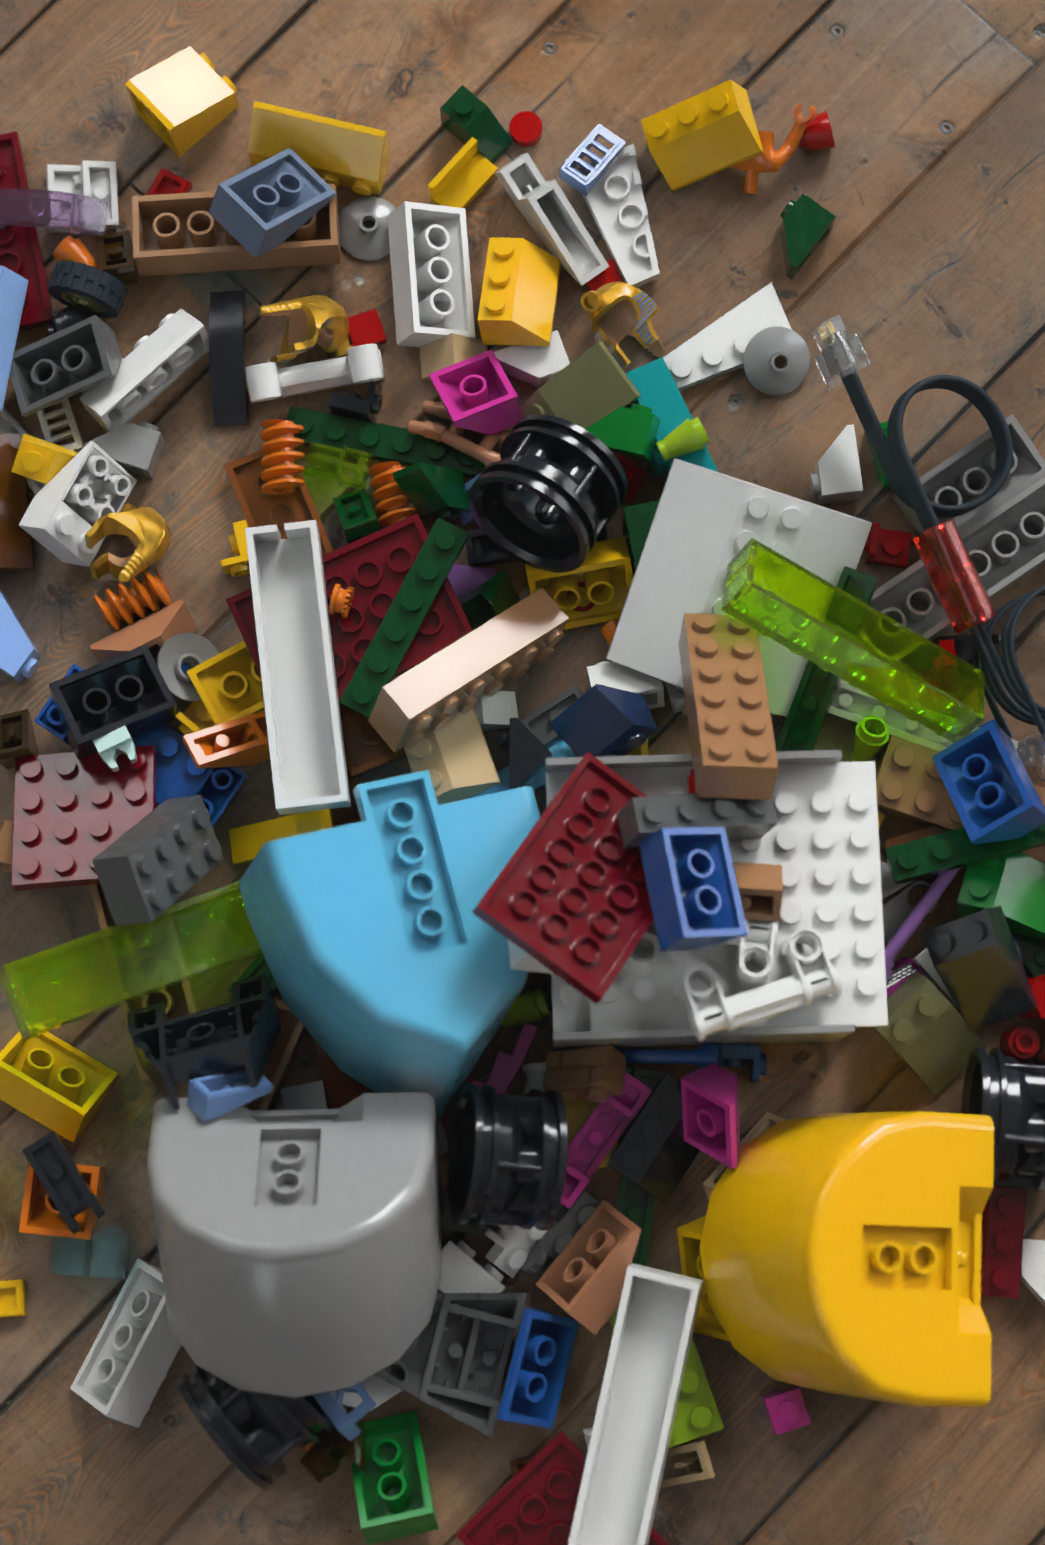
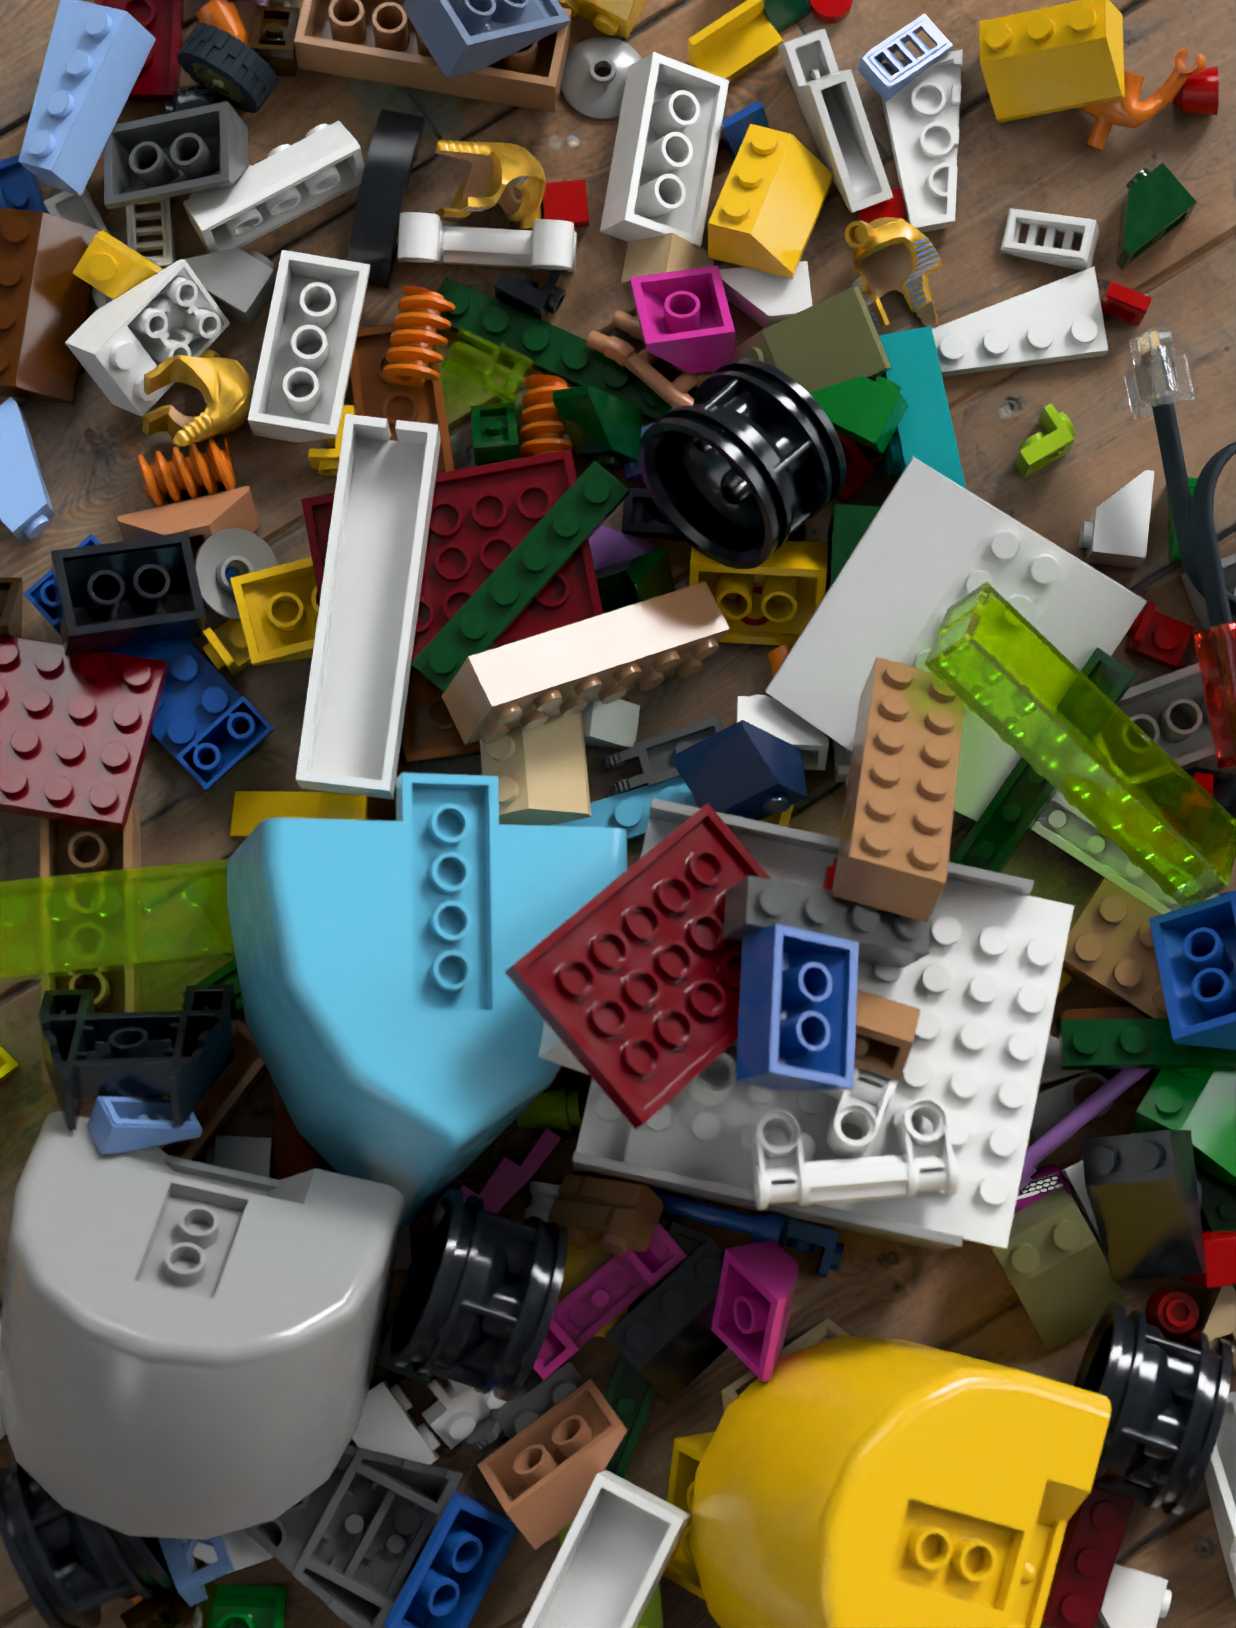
camera: 10 degrees right, 0 degrees up
(115, 744) = (116, 648): light aqua tile -> none
(158, 860) = (131, 807): dark grey brick -> none
(201, 484) = (308, 347): none -> white slope
(230, 743) = (260, 682): orange slope -> none
(340, 600) = (444, 535): orange bush -> none
(479, 241) = (736, 126): none -> blue slope
(526, 755) = (630, 788): black slope -> none
(684, 439) = (932, 437): lime cone -> none
(747, 280) = (1054, 223): none -> white slope
(760, 357) = (1058, 354): light grey dish -> none
(764, 428) = (1041, 449): none -> lime bracket
(801, 304) = (1125, 303): none -> red tile
(870, 737) = (1076, 875): lime cone -> none

